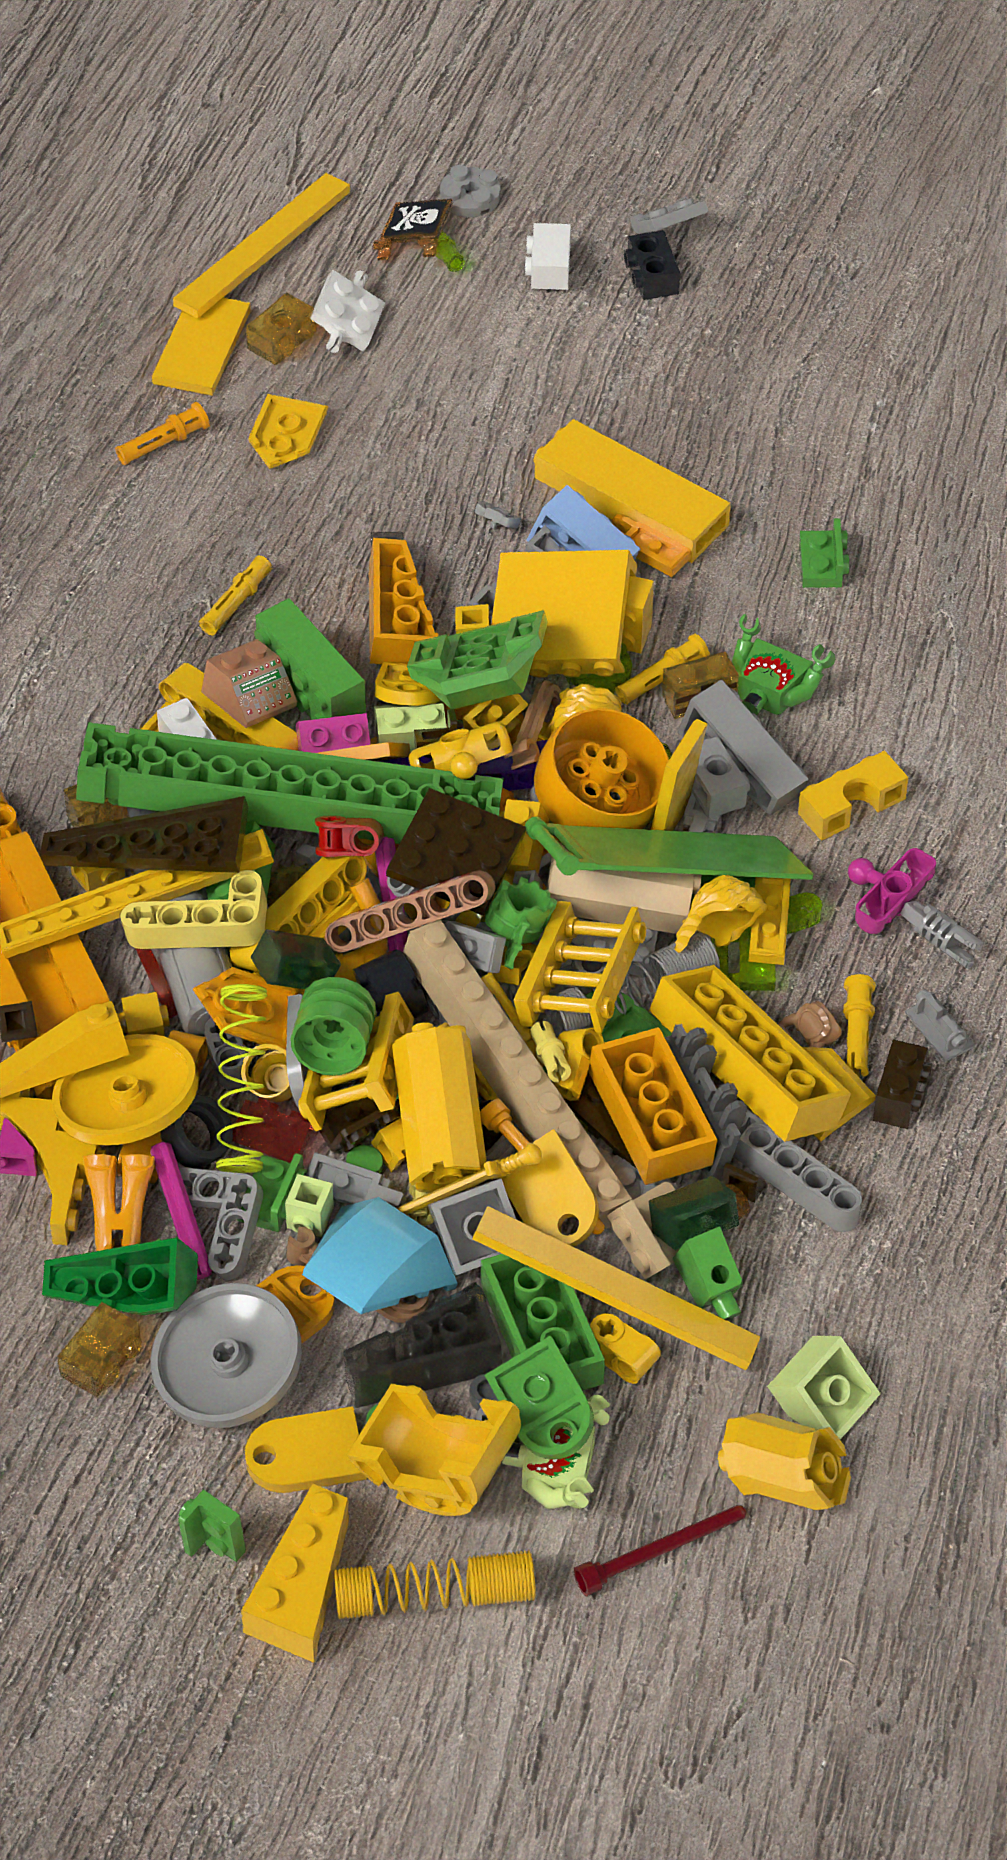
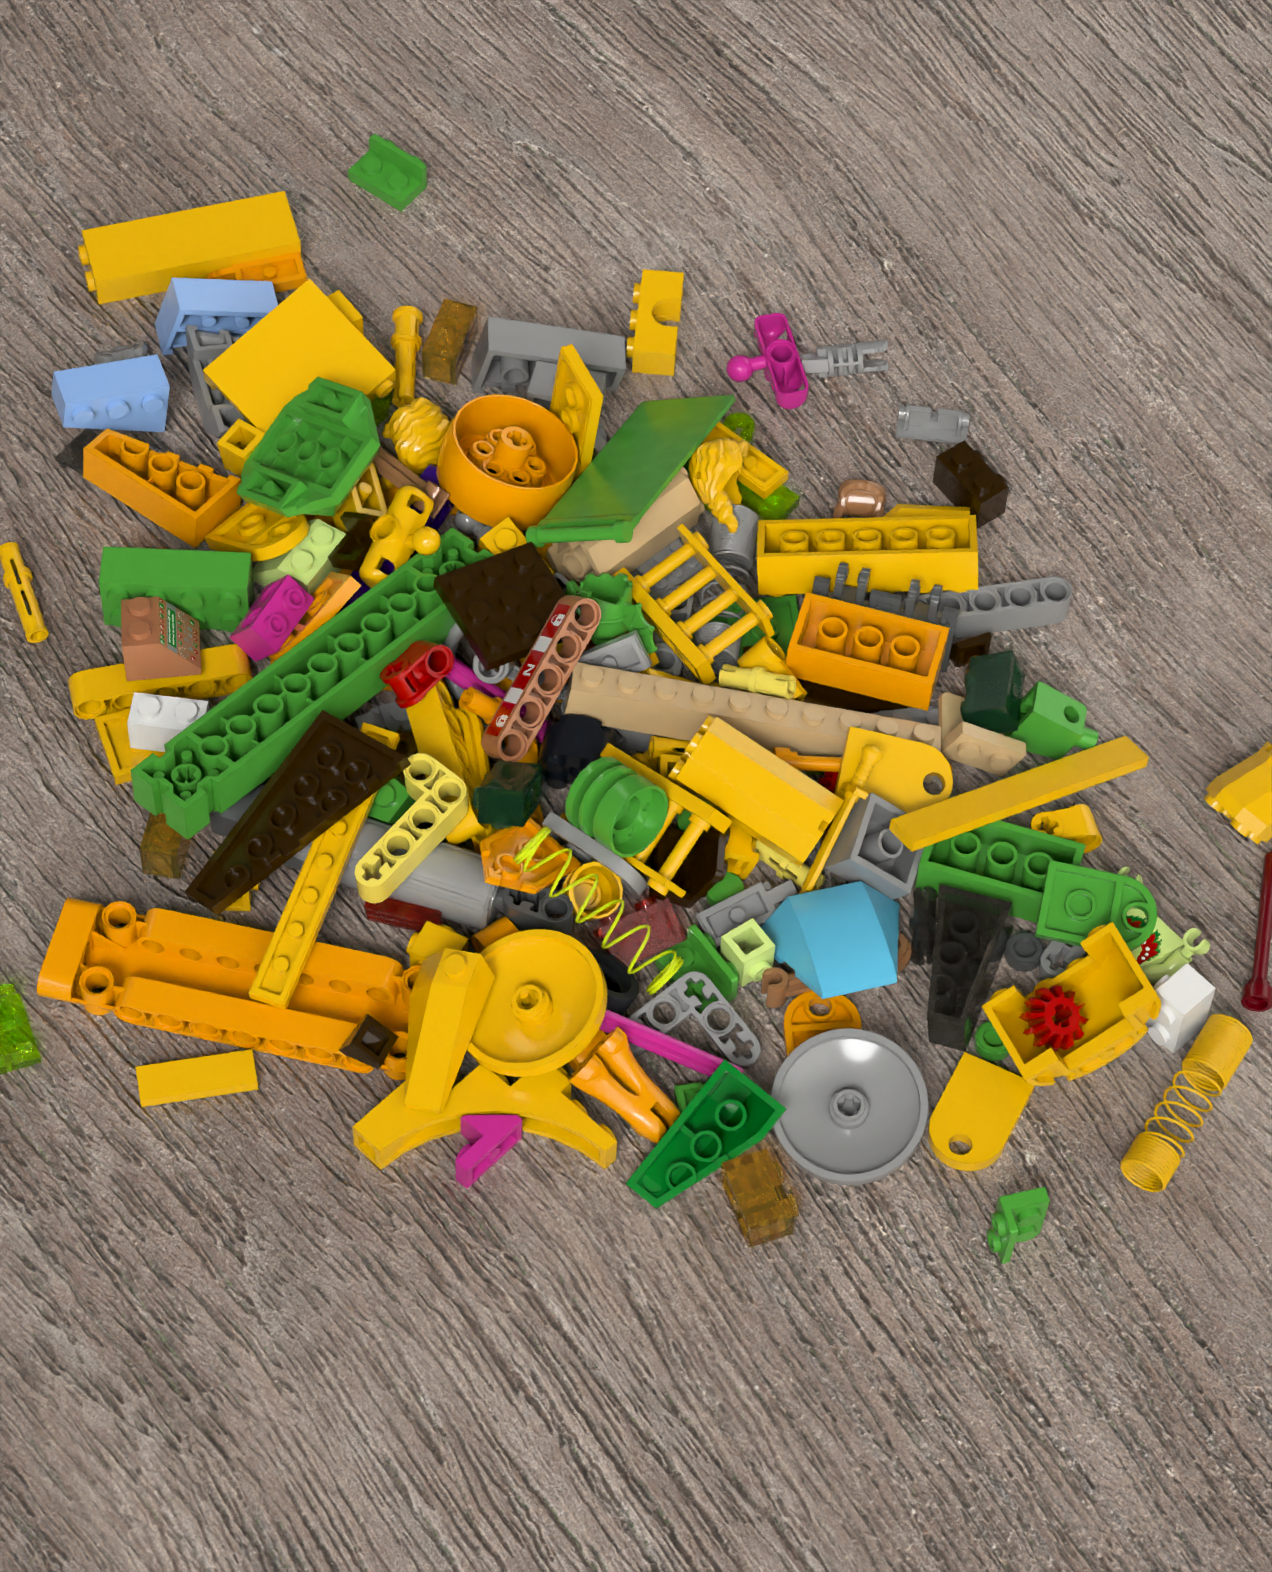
camera: 55 degrees left, 5 degrees up
(296, 1584) = (1105, 1190): yellow wedge -> none
(419, 1428) = (1068, 1018): none -> red gear
(436, 525) = (113, 395): none -> light blue wedge
(510, 1518) = (1183, 1010): none -> white brick
(773, 676) = (491, 284): bright green torso -> none
(824, 1386) = (1207, 725): yellowish green slope -> none
(858, 1012) = (873, 465): yellow pin -> none

